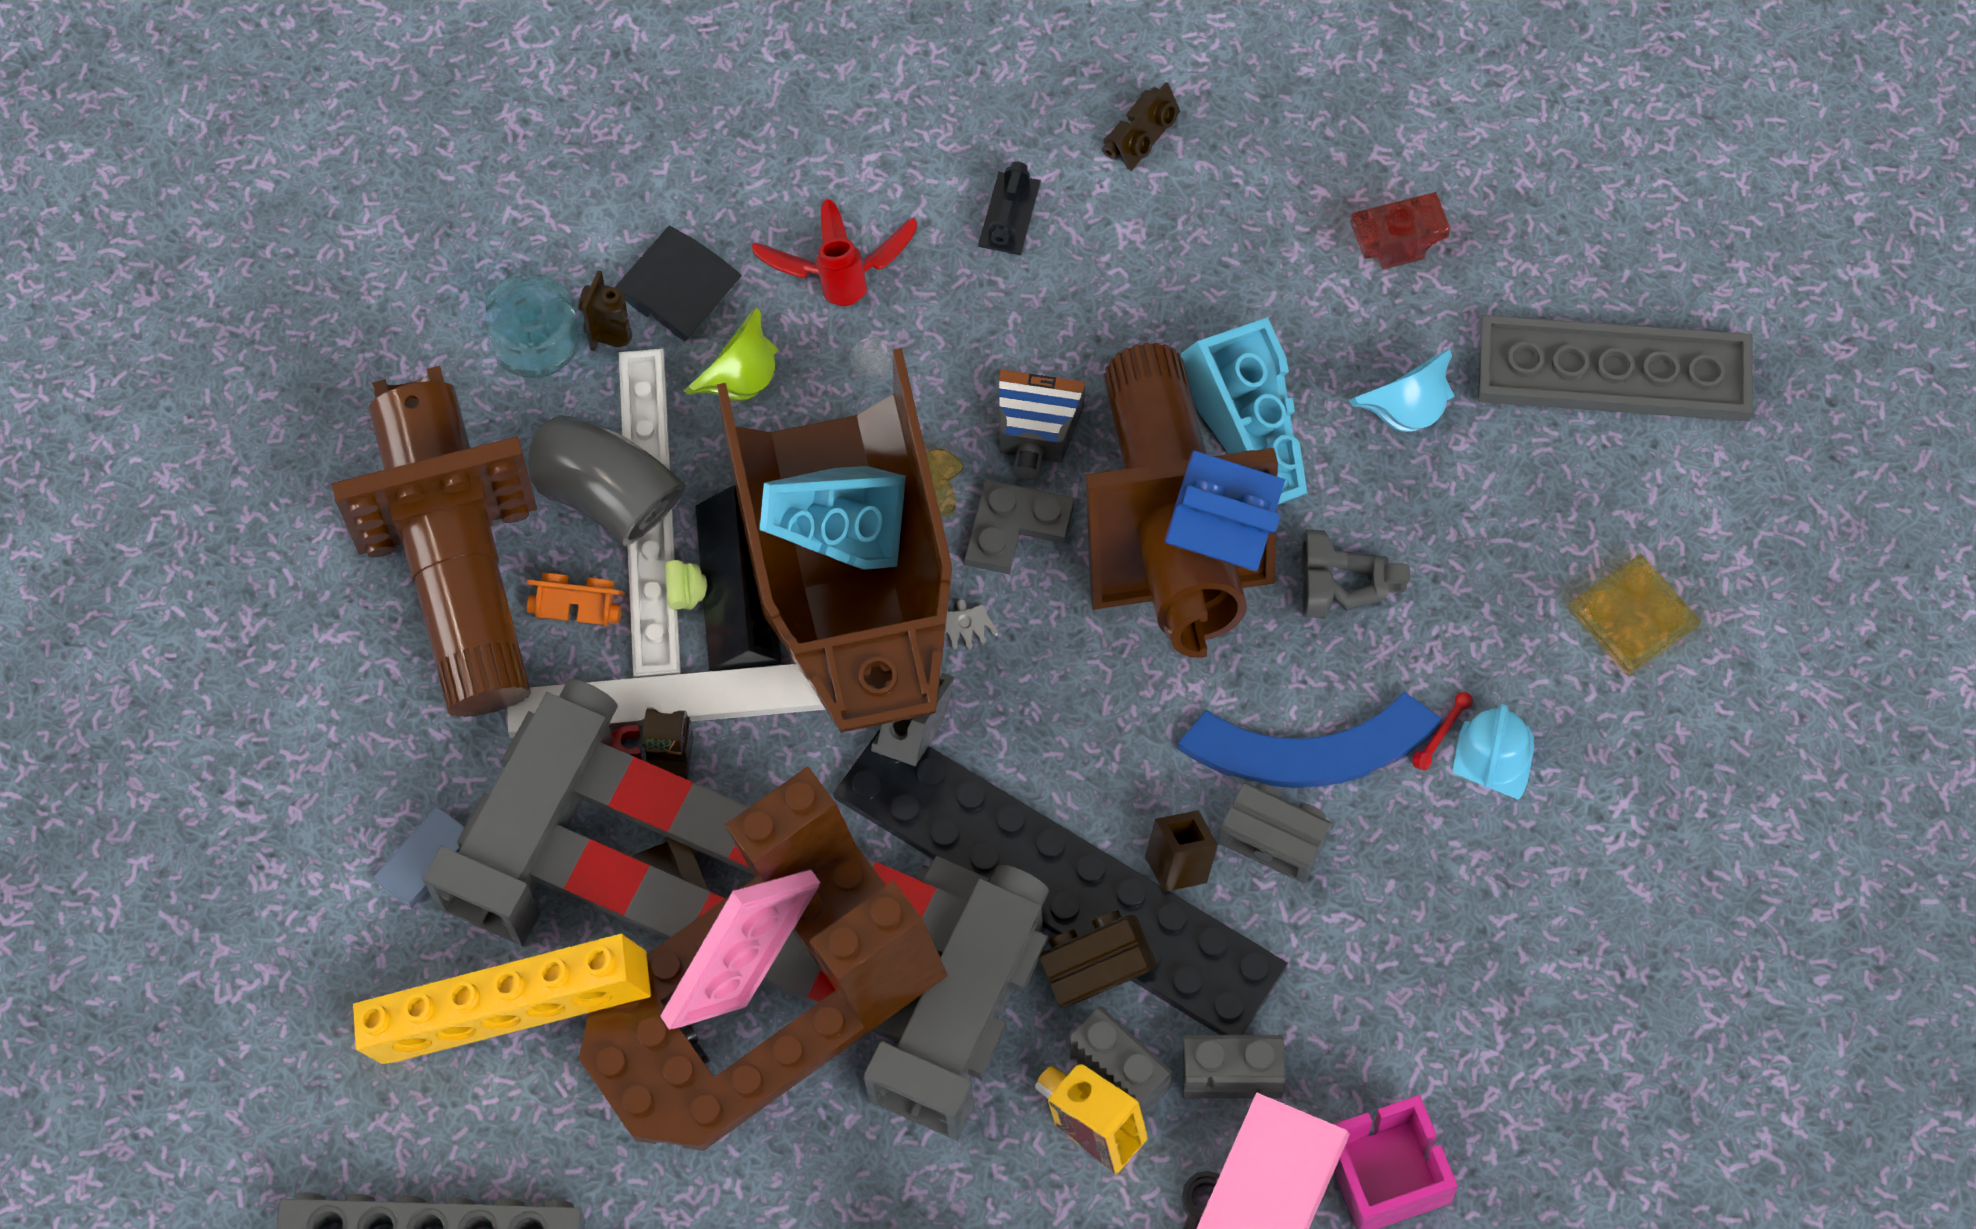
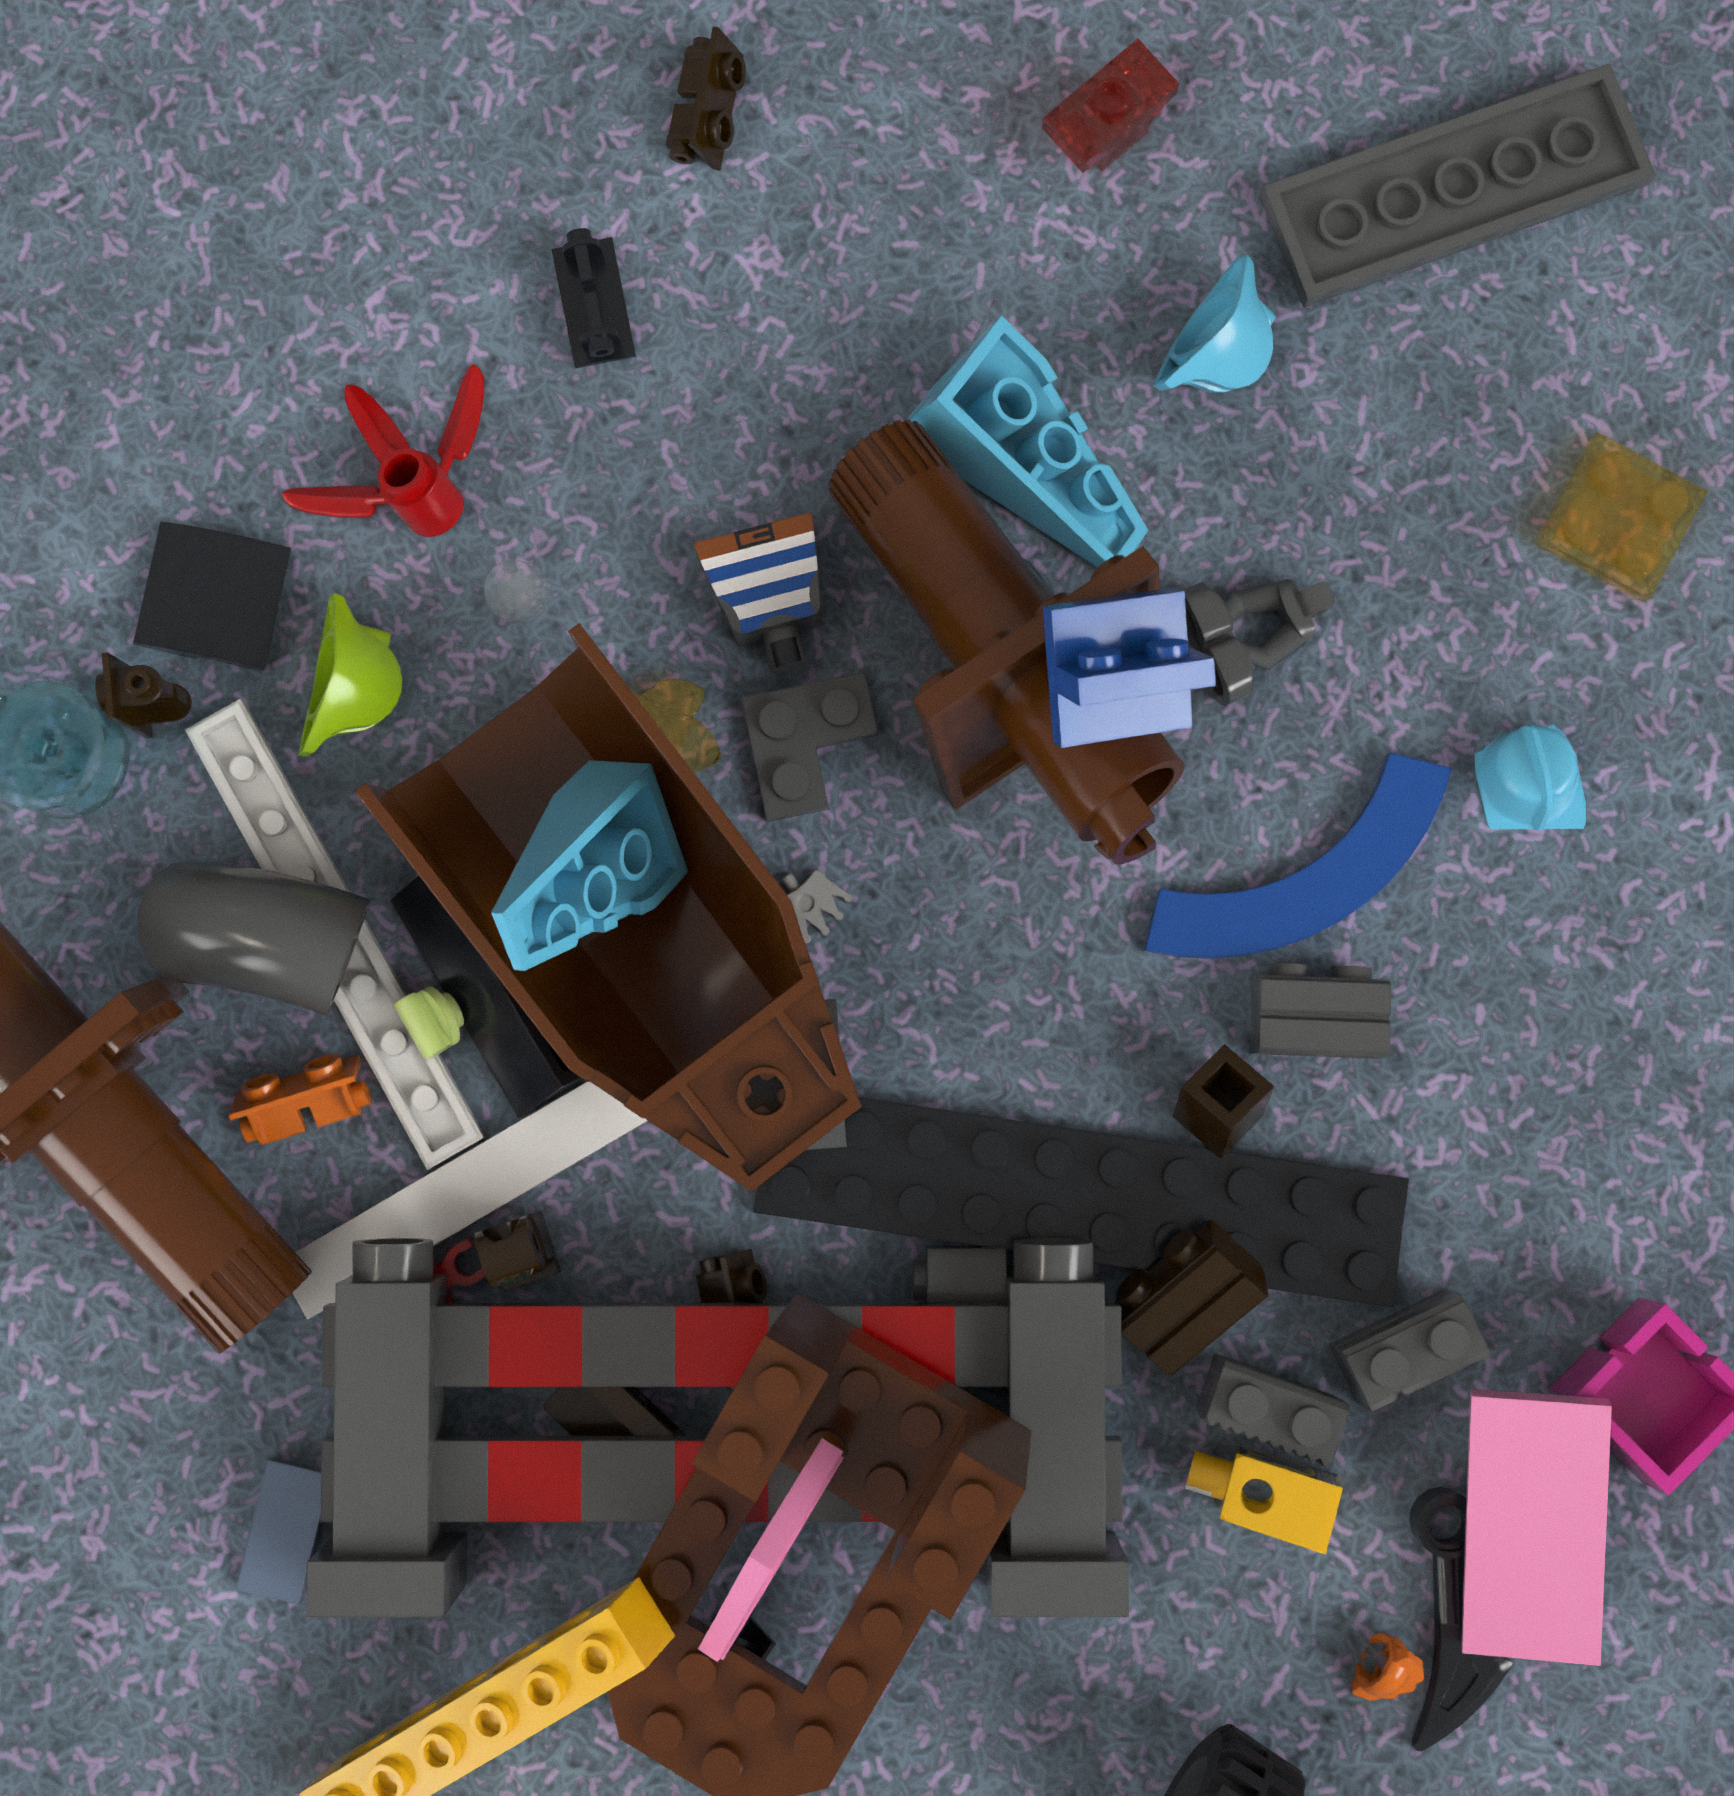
camera: 25 degrees left, 20 degrees up
(1423, 759) = (1462, 729): red hinge -> none

